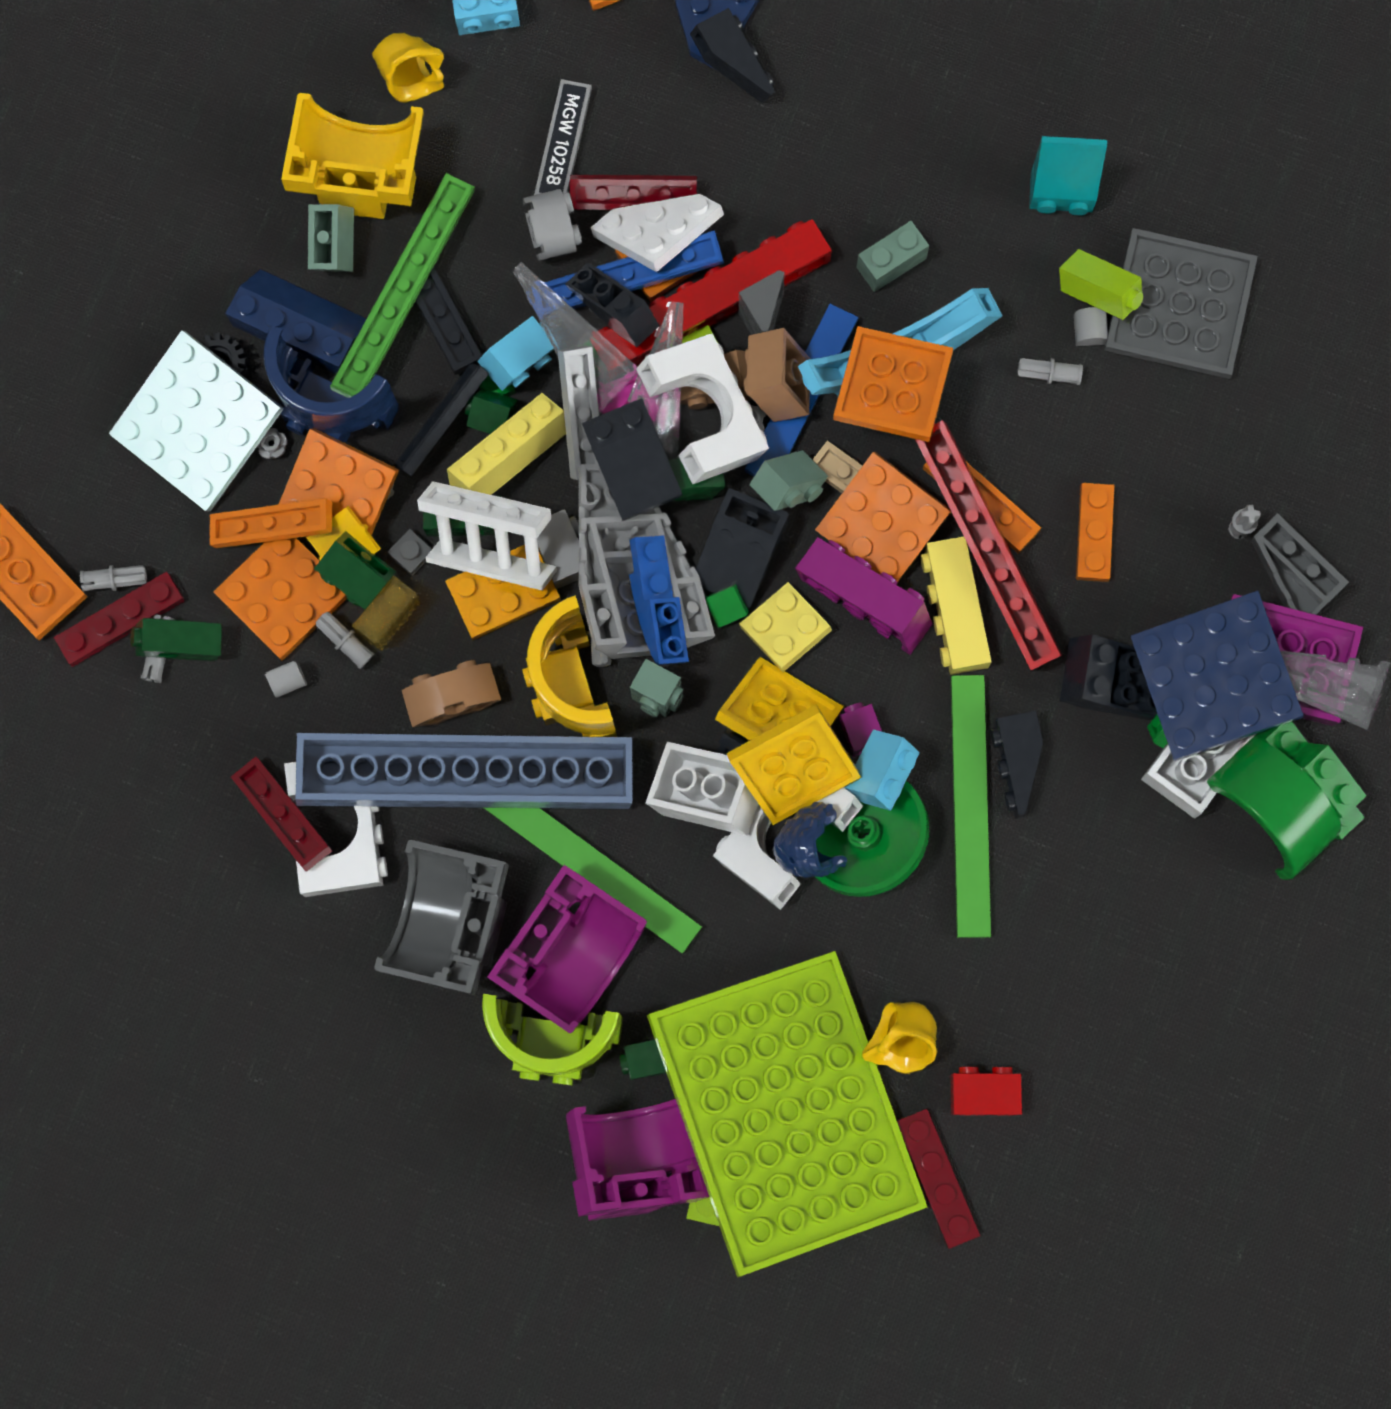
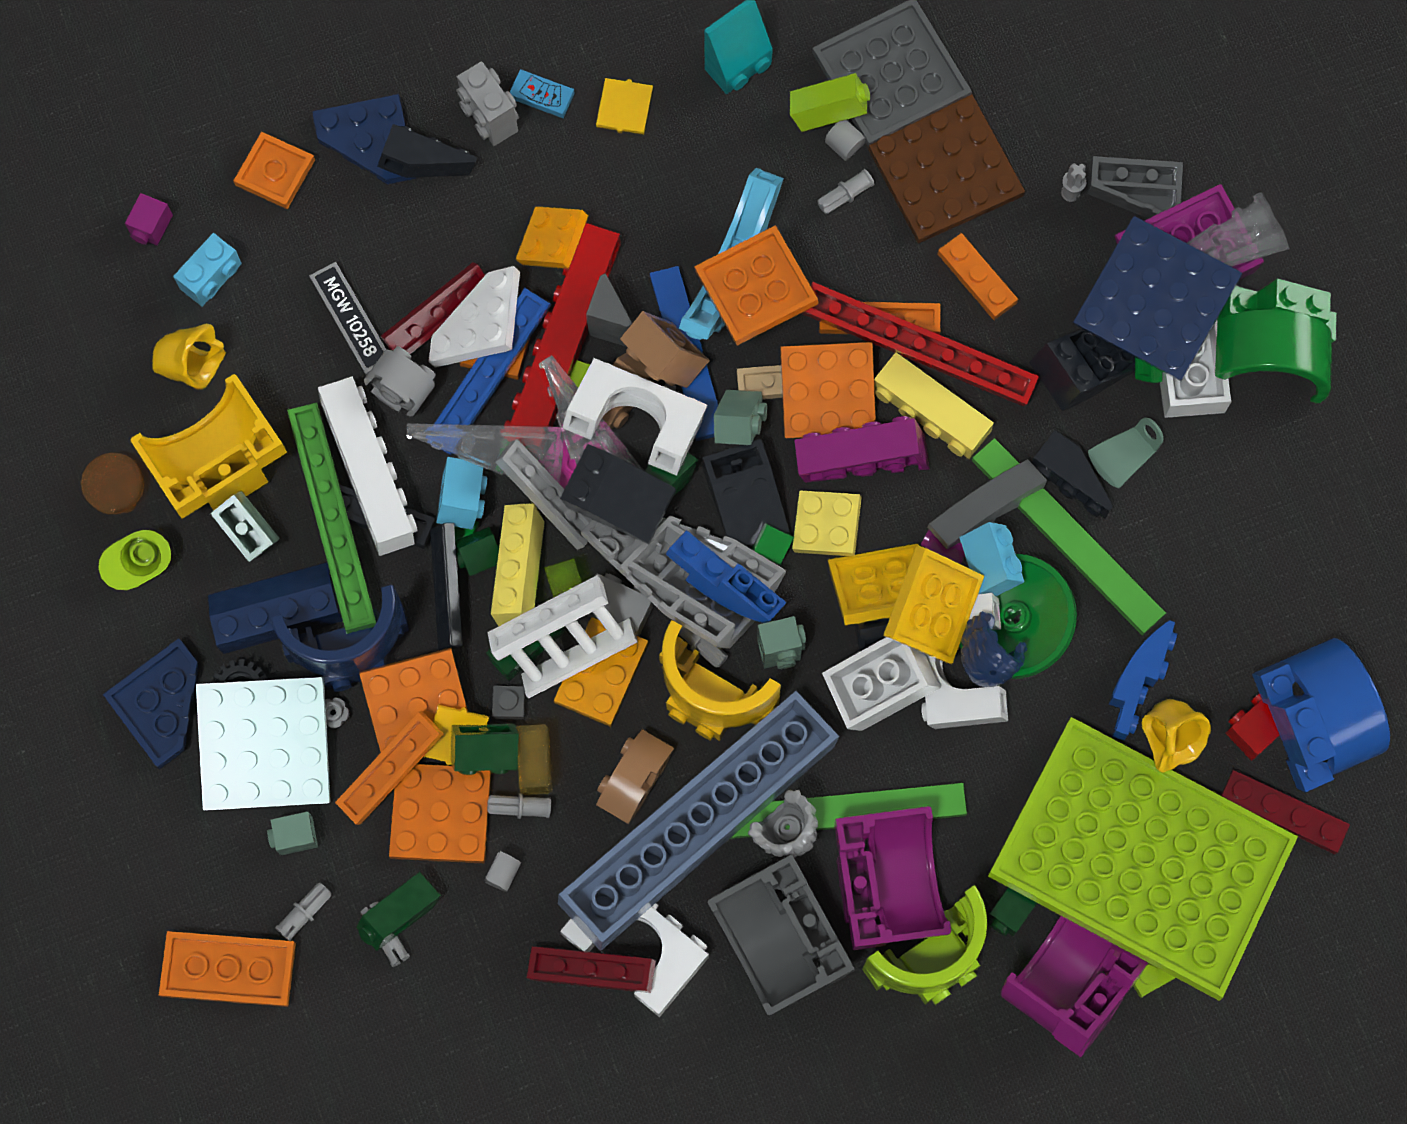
camera: 45 degrees left, 5 degrees down
(118, 619) = (335, 938): dark red plate -> none
(148, 319) = (158, 702): none -> dark blue plate
(157, 510) = (292, 833): none -> sand green brick
(225, 193) = (134, 560): none -> lime piece
(264, 119) = (112, 483): none -> clear orange tile
(465, 269) = (366, 465): none -> white brick
(513, 834) = (802, 833): none -> light grey hair
(537, 490) = (562, 577): none -> clear neon green brick
(614, 304) = (500, 398): black slope -> none
(777, 208) = (552, 237): none -> light orange plate
(822, 54) = (487, 103): none -> light grey brick
(878, 83) = (542, 93): none -> dark azure tile
(892, 256) = (664, 203): sand green brick -> none
(925, 722) = (987, 503): none -> dark grey slope
(932, 963) = (1143, 668): none -> blue slope
(936, 149) = (624, 106): none -> yellow piece
(1043, 1140) = (1333, 720): none -> blue piece
(1080, 779) = (1126, 452): none -> sand green piece
(1152, 422) = (946, 169): none -> reddish brown plate

